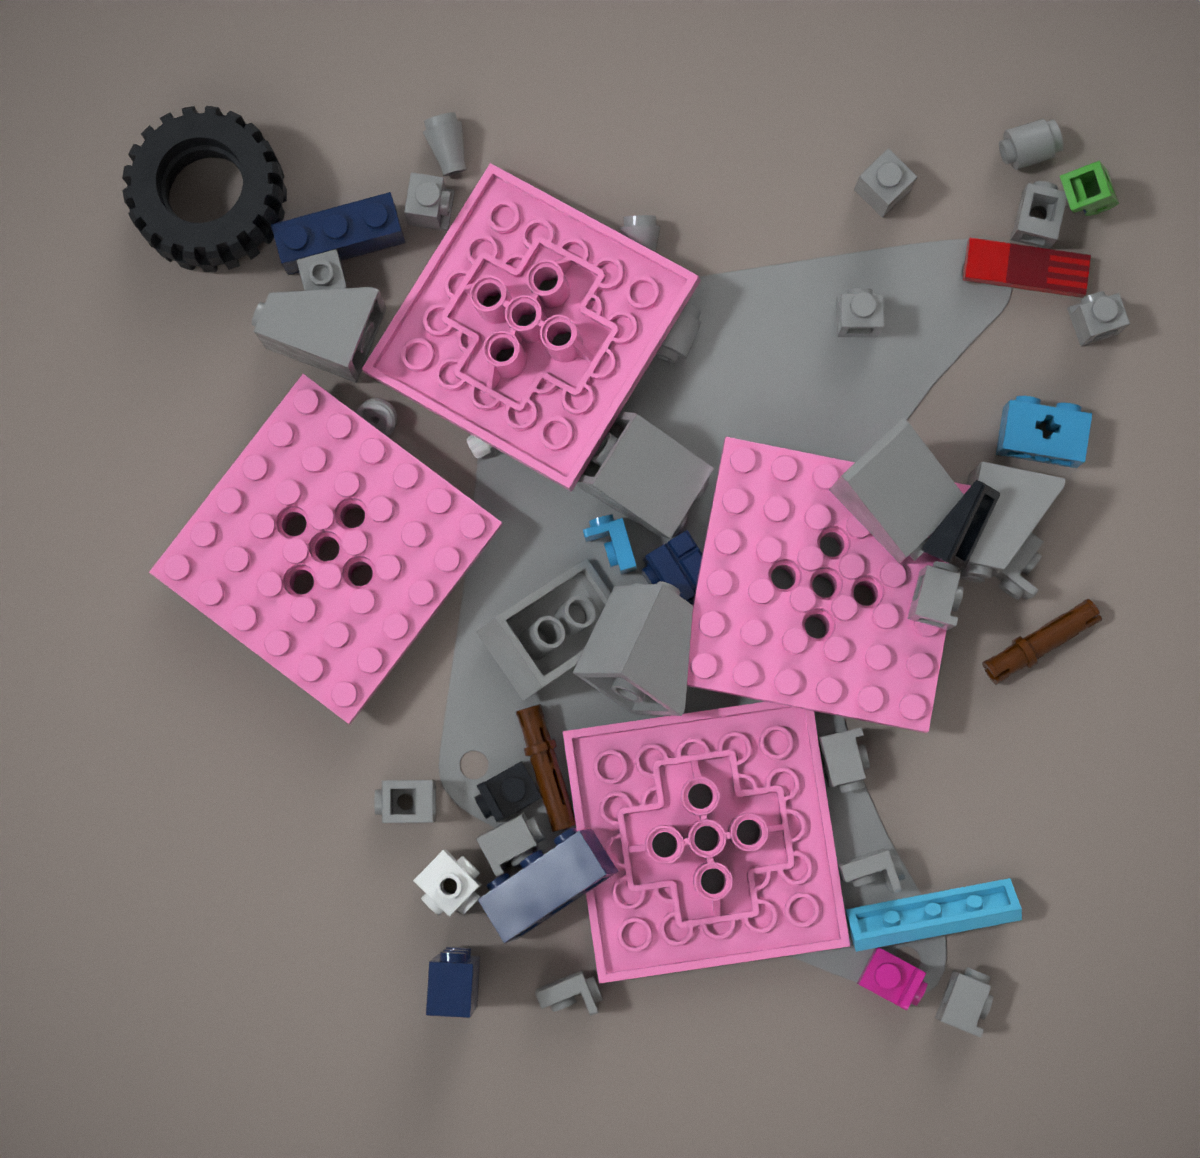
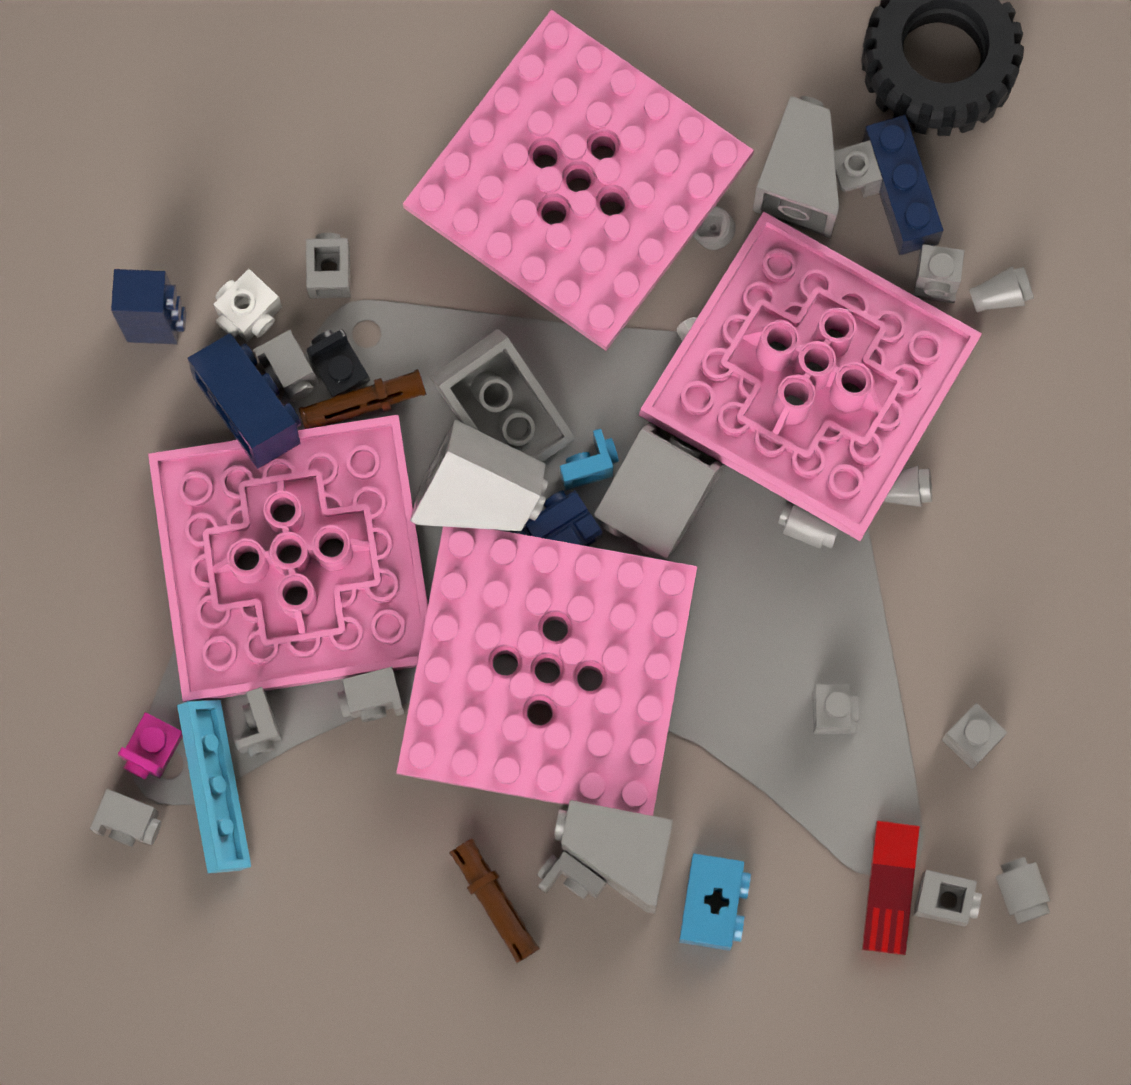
camera: 90 degrees right, 5 degrees down
(561, 992) = (138, 419): light grey bracket -> none
(898, 491) = (636, 733): light grey slope -> none
(936, 596) = (533, 774): light grey brick -> none
(963, 526) = (601, 794): black slope -> none
(1089, 189) = (971, 945): bright green leg -> none
(1098, 317) = (837, 959): light grey brick -> none

